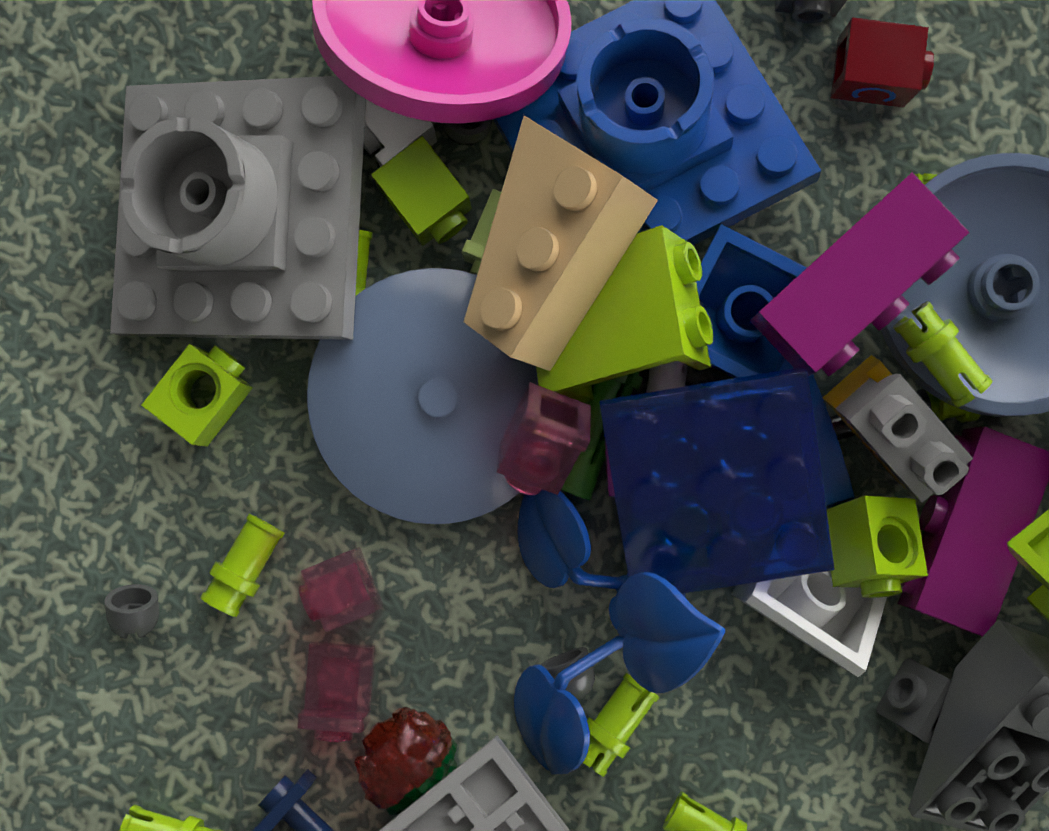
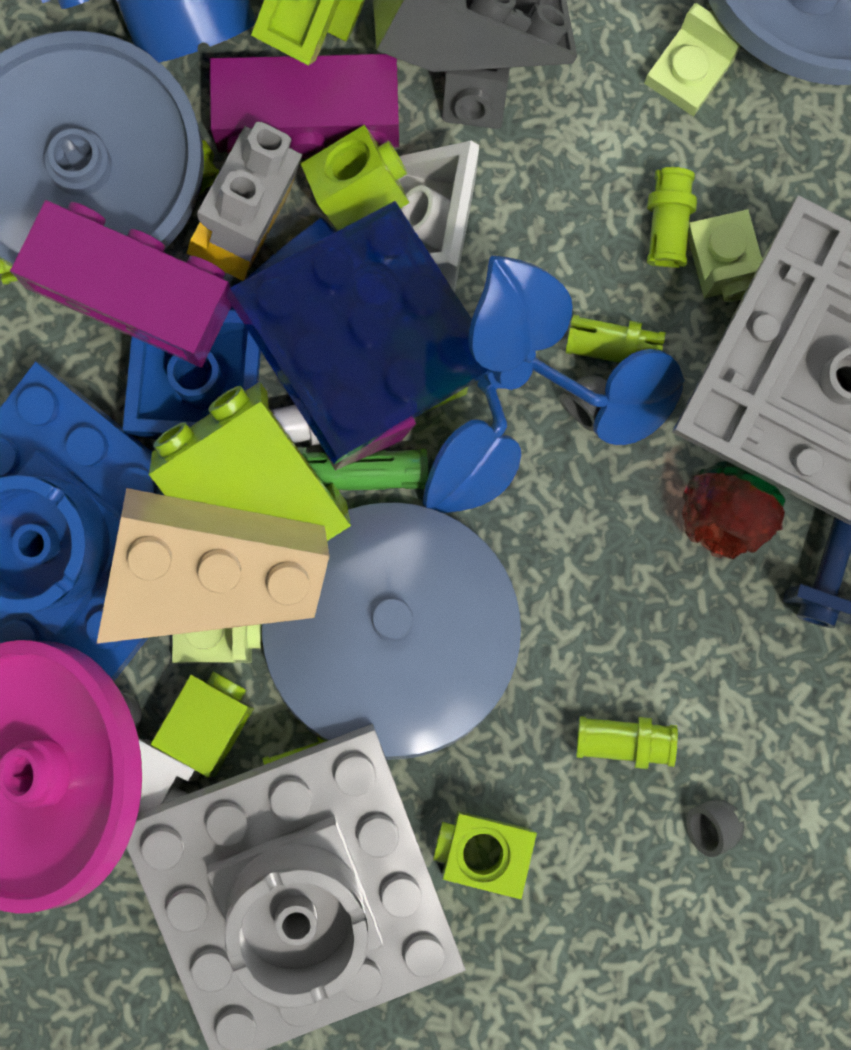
camera: 120 degrees left, 5 degrees down
(337, 690) = (699, 602): clear pink bracket -> none
(339, 590) = (609, 639): clear pink brick -> none
(543, 441) = (391, 504): clear pink brick -> none
(942, 353) = (161, 187): lime pin -> none

